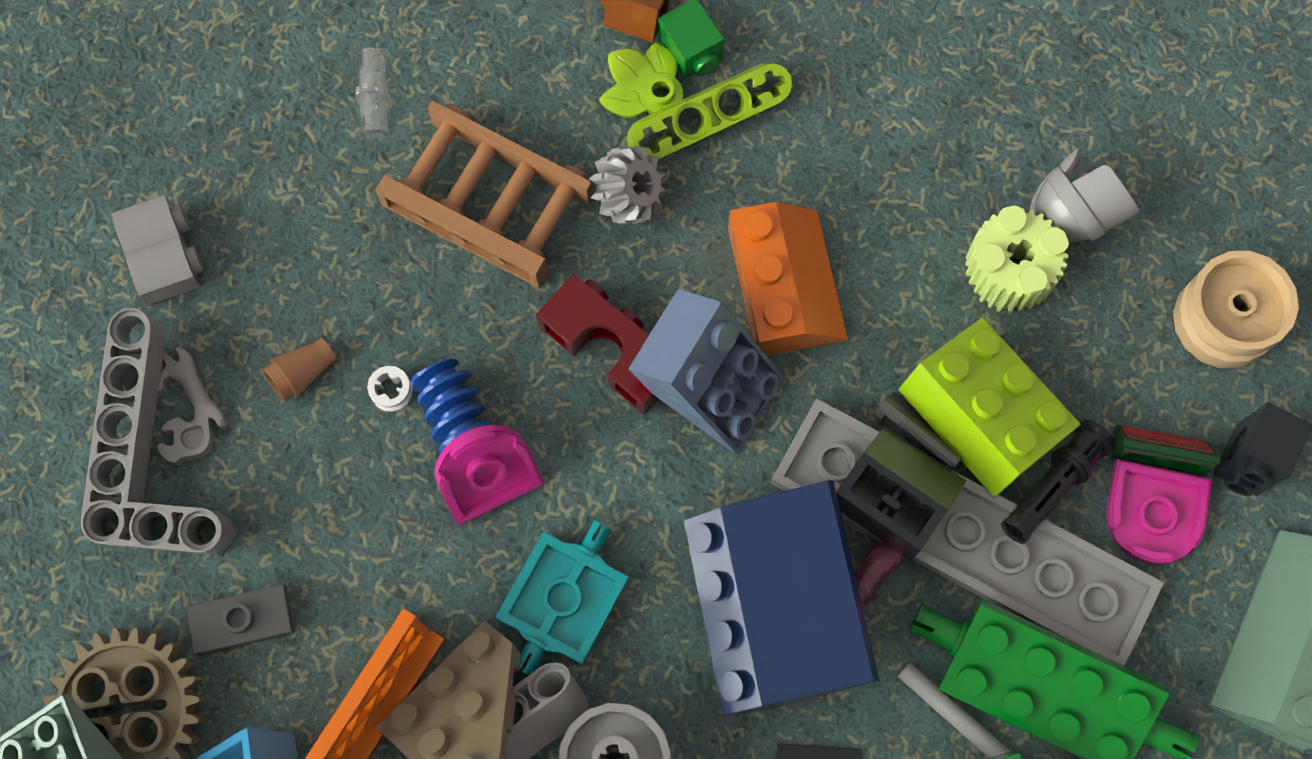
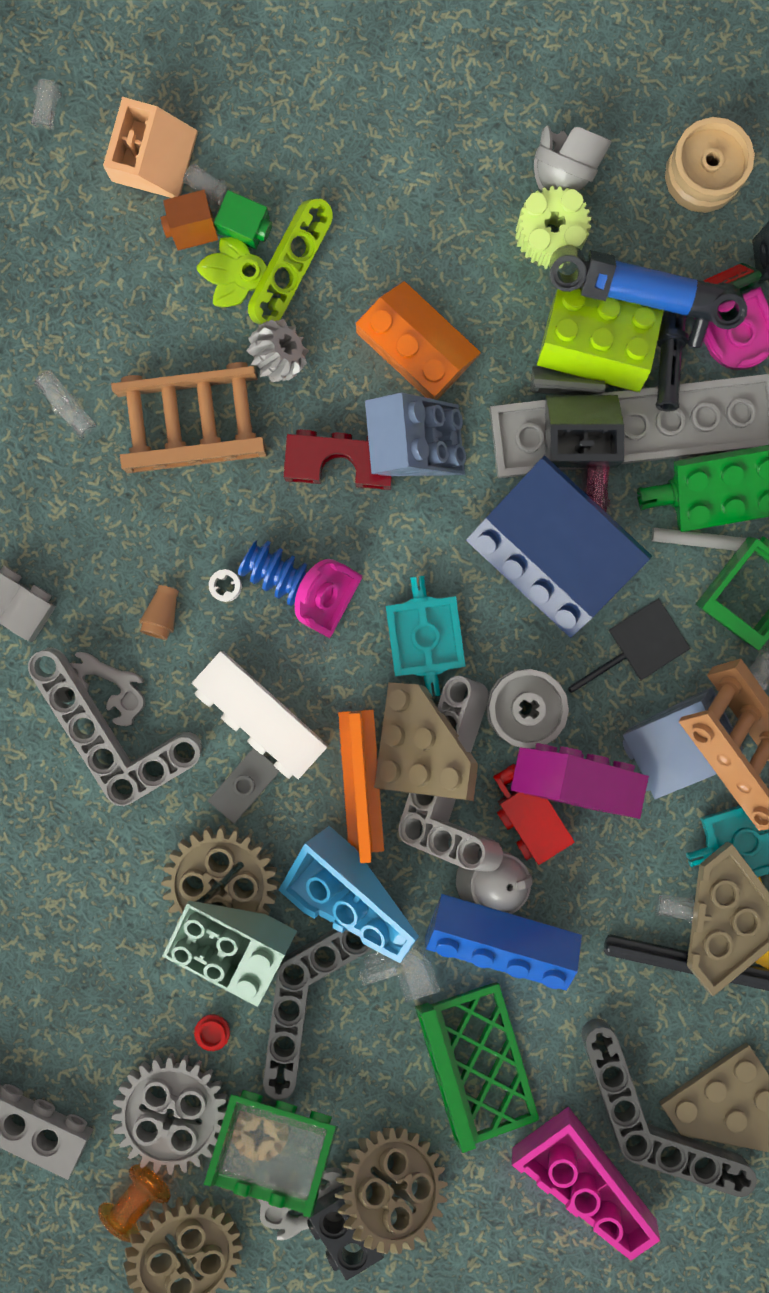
camera: 35 degrees left, 15 degrees up
(316, 554) = (259, 714): none -> white brick
(1036, 342) = (606, 277): none -> piece

